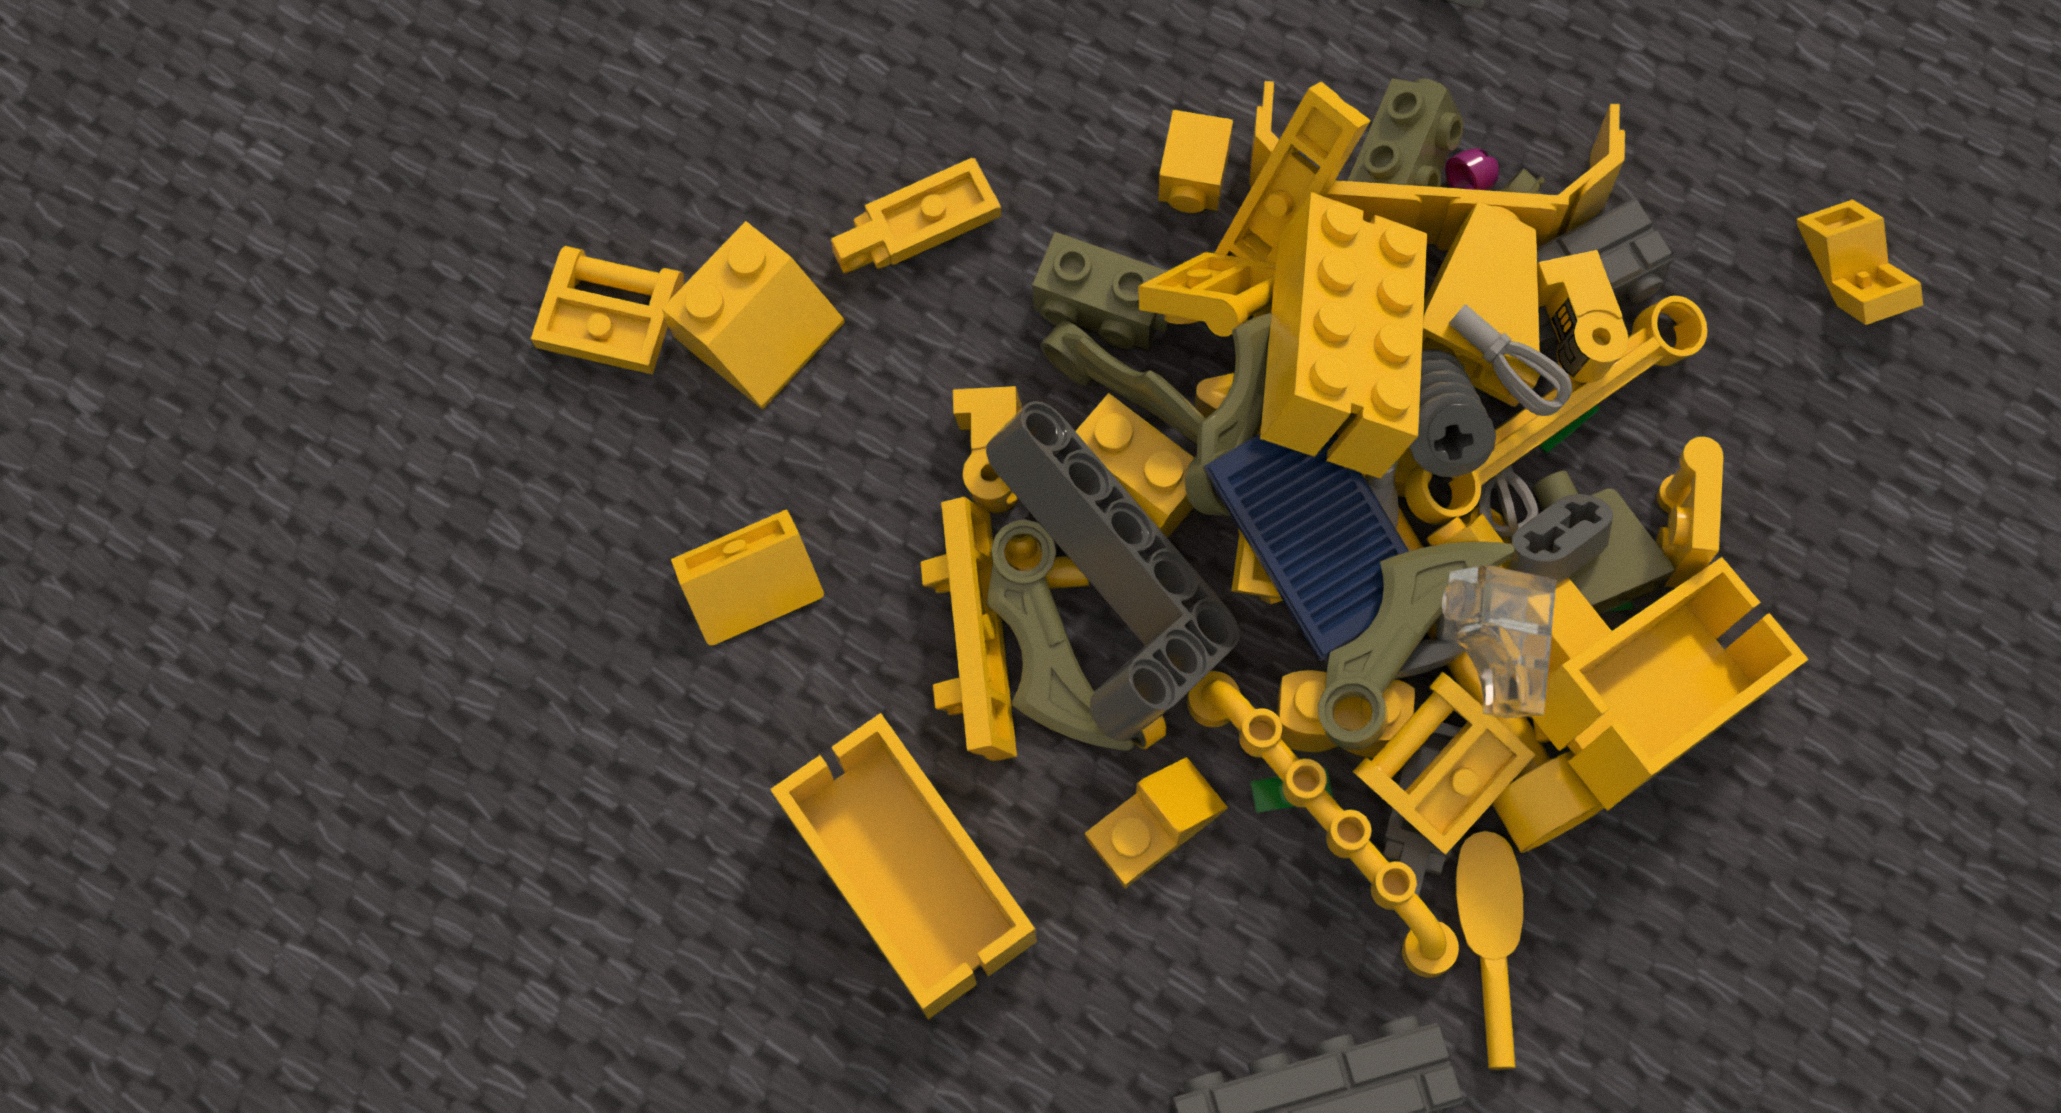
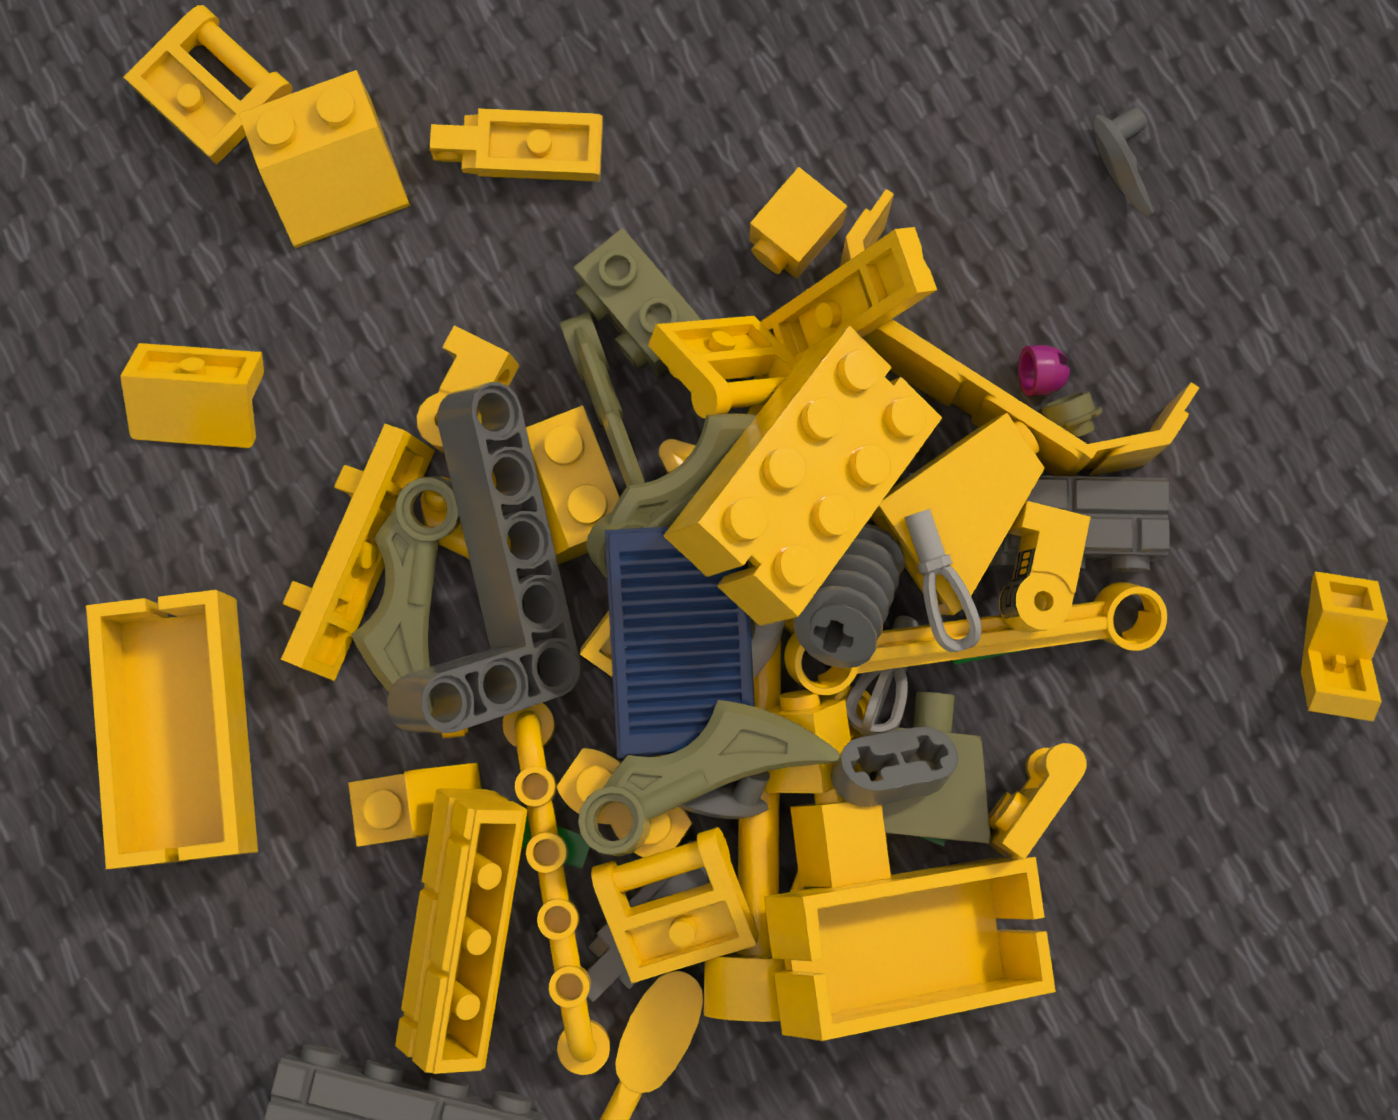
camera: 30 degrees right, 10 degrees up
(1268, 892) = (460, 929): none -> yellow brick
(1410, 135) = (995, 312): olive brick -> none
(1506, 631) = (783, 832): clear arch -> none

